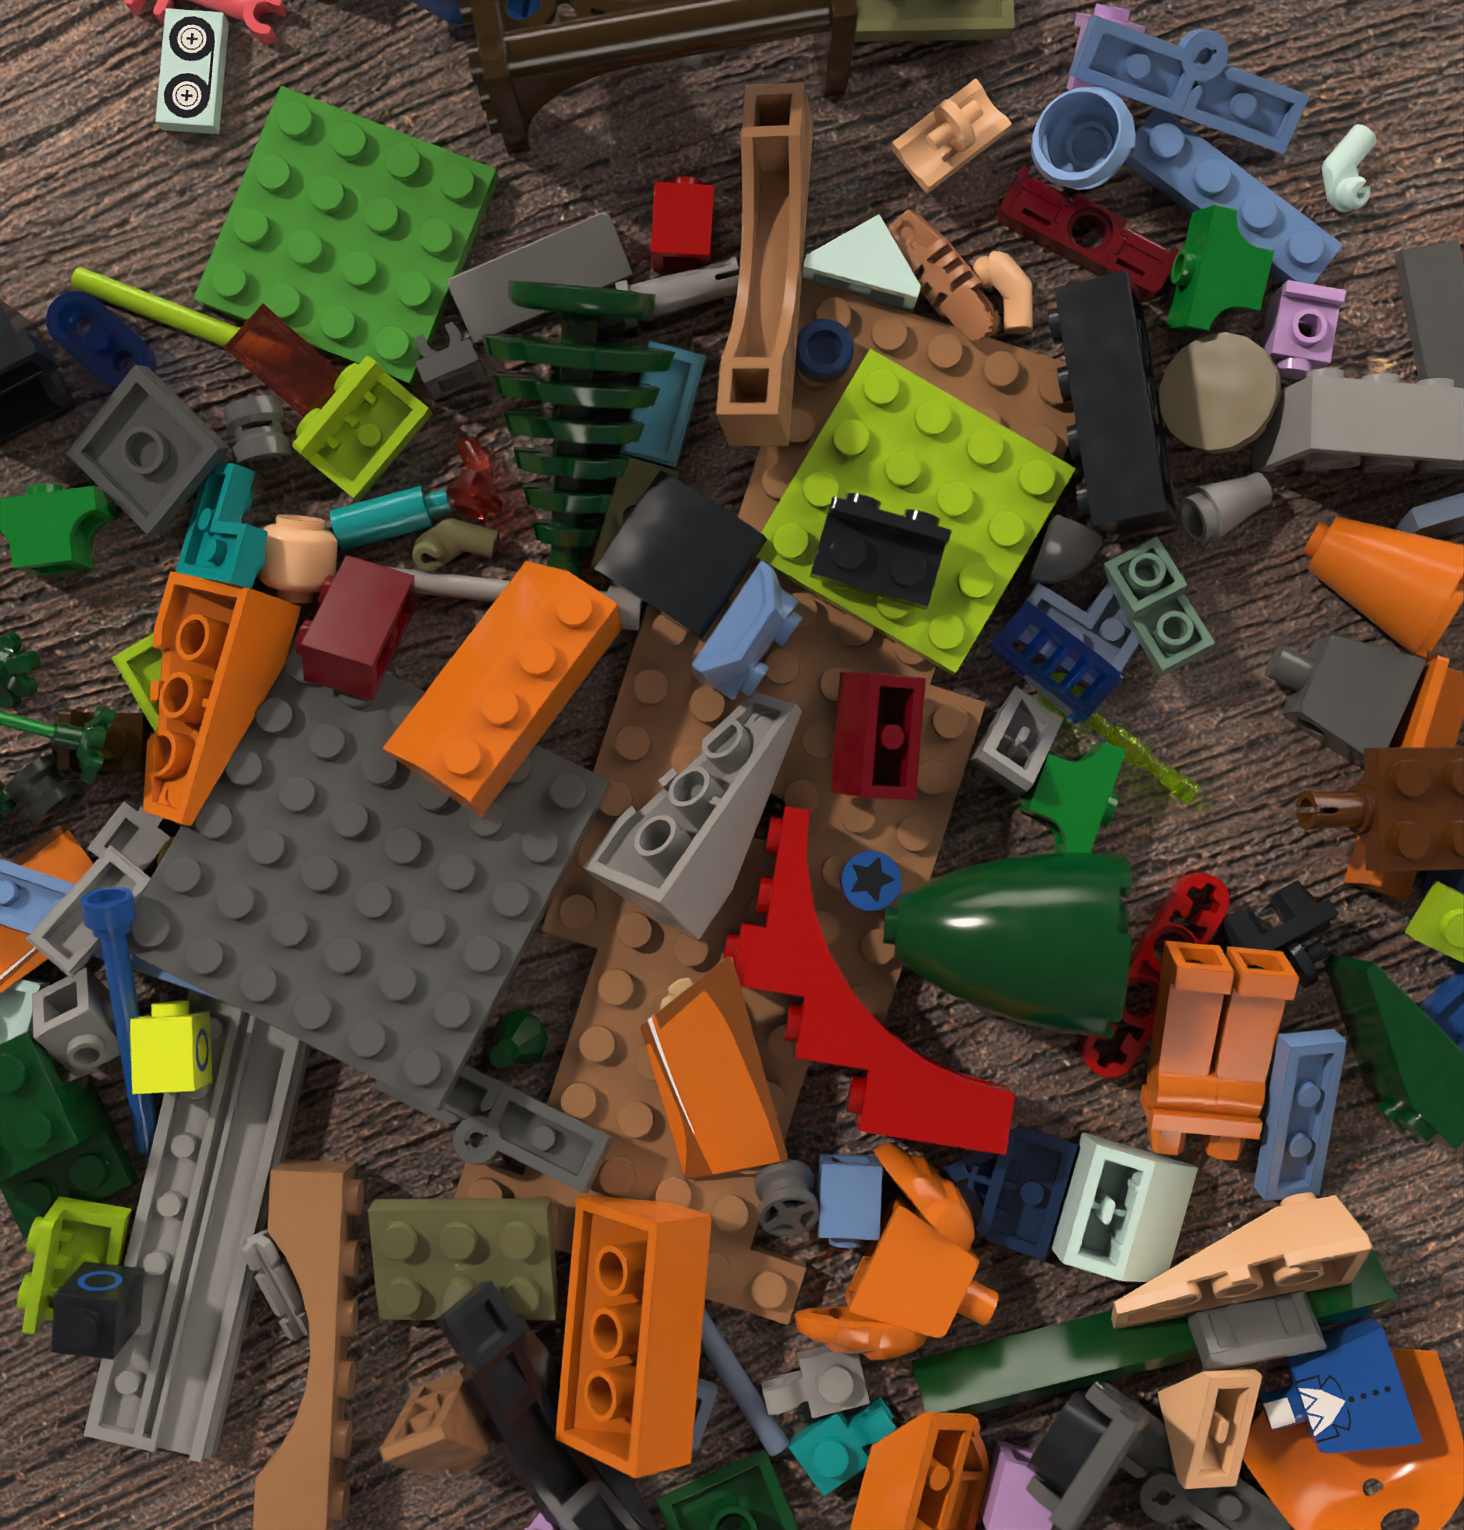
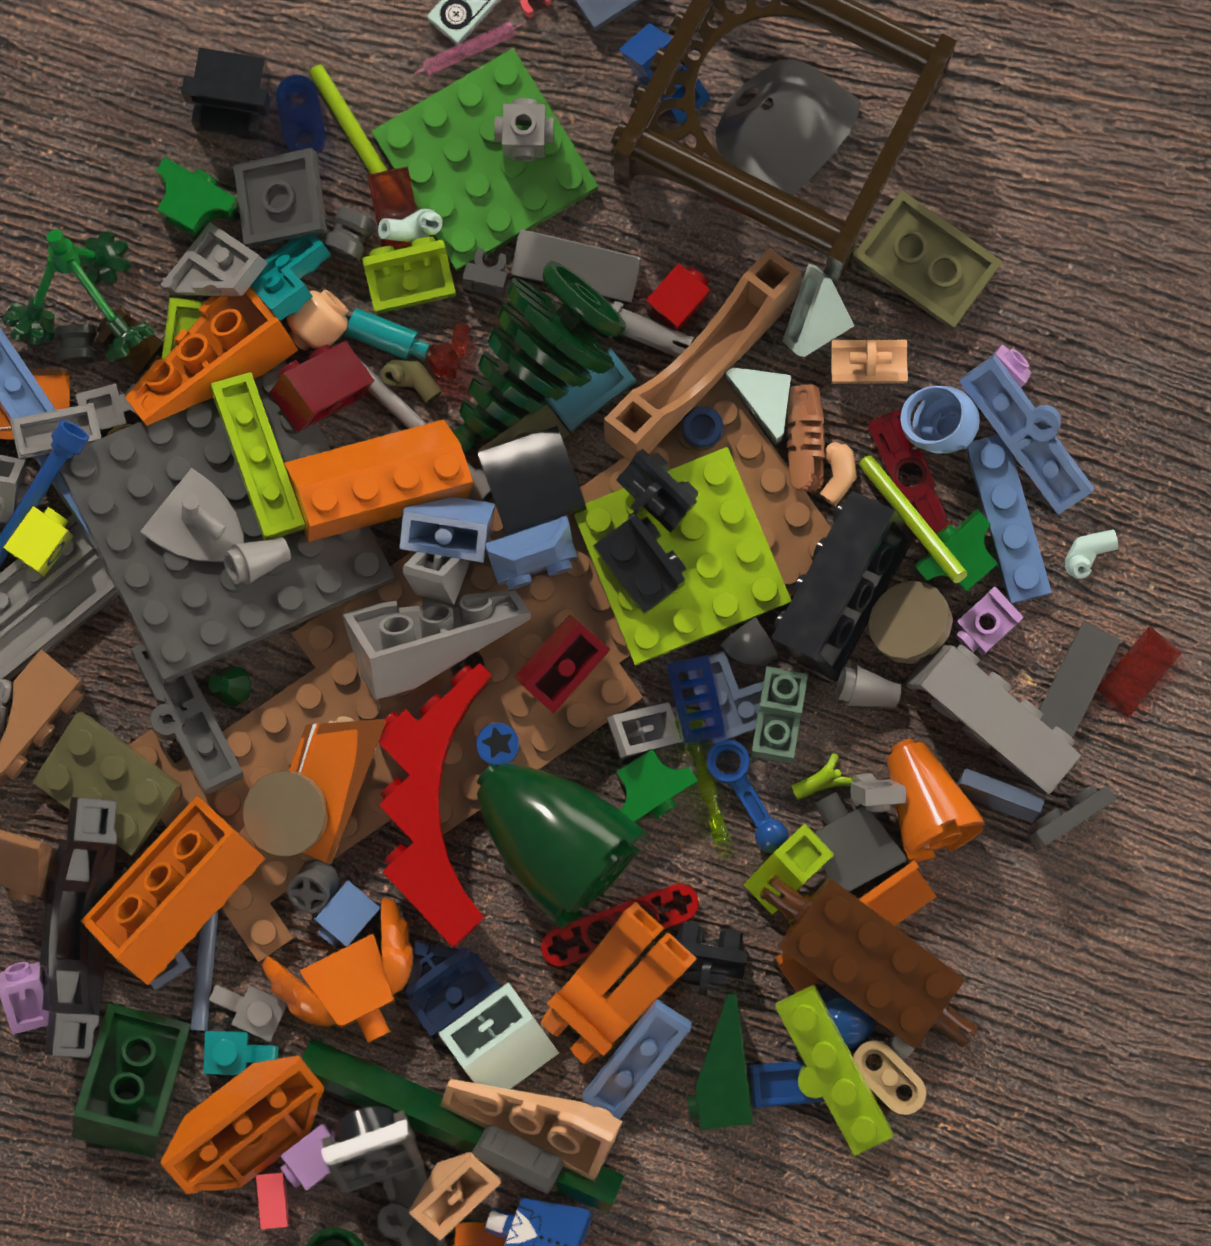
camera: 40 degrees right, 5 degrees down
(133, 584) = (214, 266): none -> light grey wing
(219, 163) = (478, 51): none -> bright pink piece
(325, 363) = (415, 226): none -> light aqua arm
(335, 894) = (195, 521): none -> light grey shield
(347, 764) = (257, 456): none -> lime plate
(362, 158) = (524, 144): none -> light grey brick
(435, 887) = (254, 559): none -> light grey cone
(629, 679) = (448, 528): none -> medium blue slope
(653, 731) = (436, 576): none -> light grey slope
(694, 1144) = (285, 813): none -> dark tan tile
(837, 452) = (656, 490): none -> black hips
(852, 124) = (816, 314): none -> light aqua slope
(1143, 273) = (913, 519): none -> lime bar
(1242, 747) = (769, 833): none -> blue piece
(1250, 643) = (824, 779): none -> lime bar
(1307, 758) = (793, 862): none -> lime slope
(1338, 613) = (876, 794): none -> light grey plate

